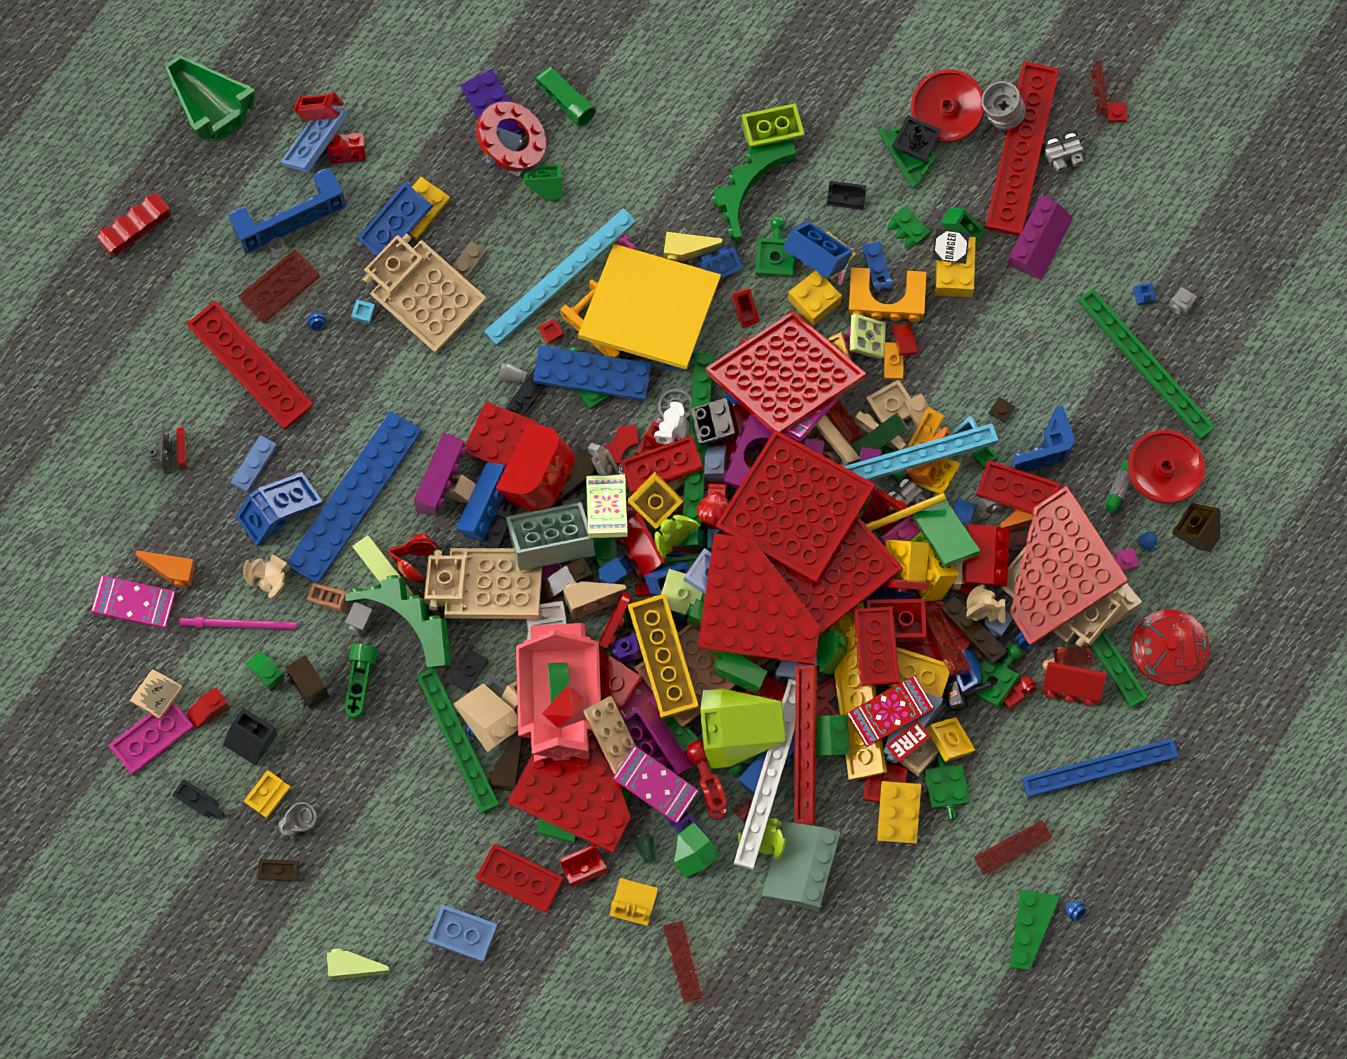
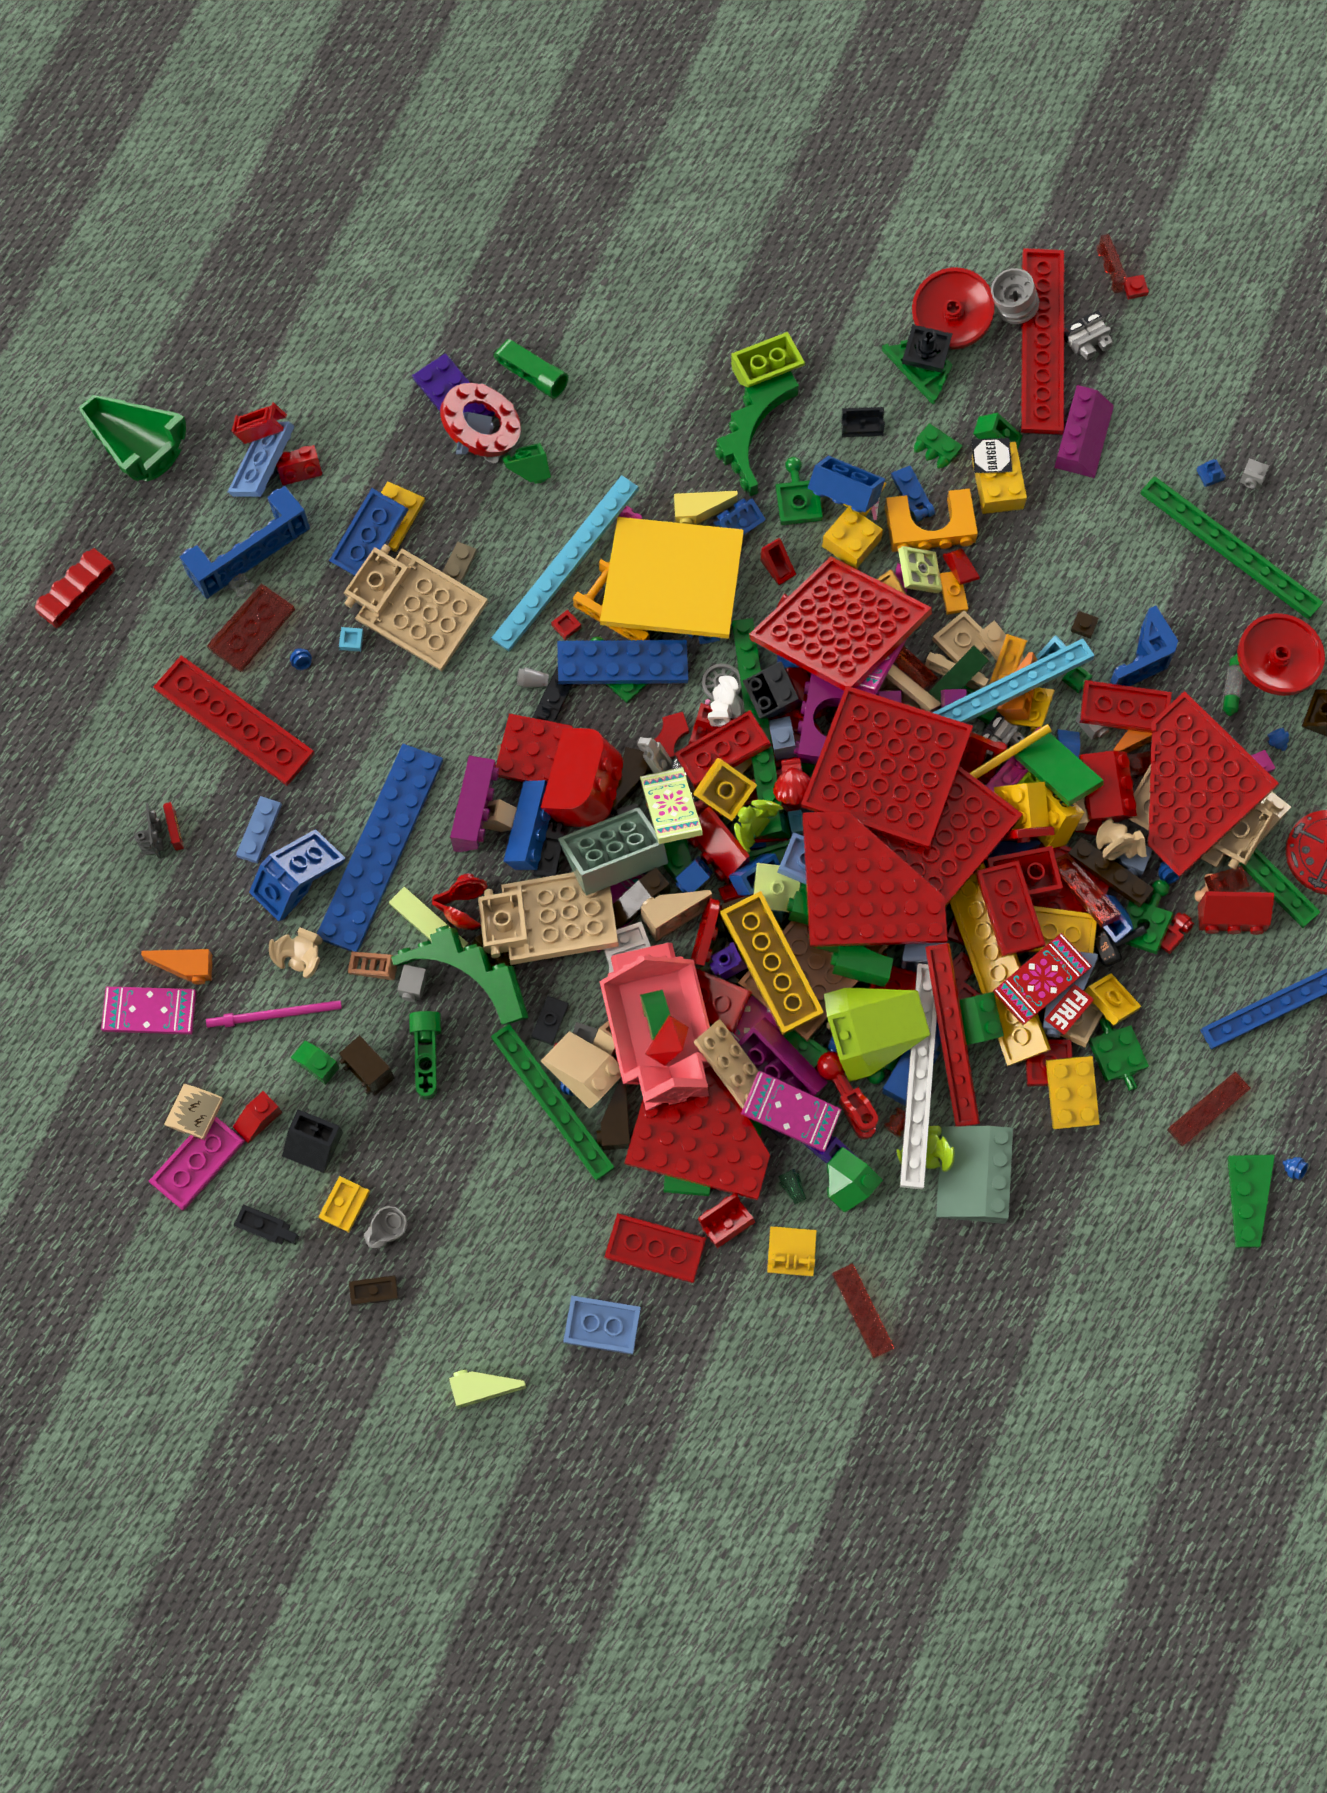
camera: 10 degrees left, 0 degrees up
(830, 651) = (959, 923): green slope -> none

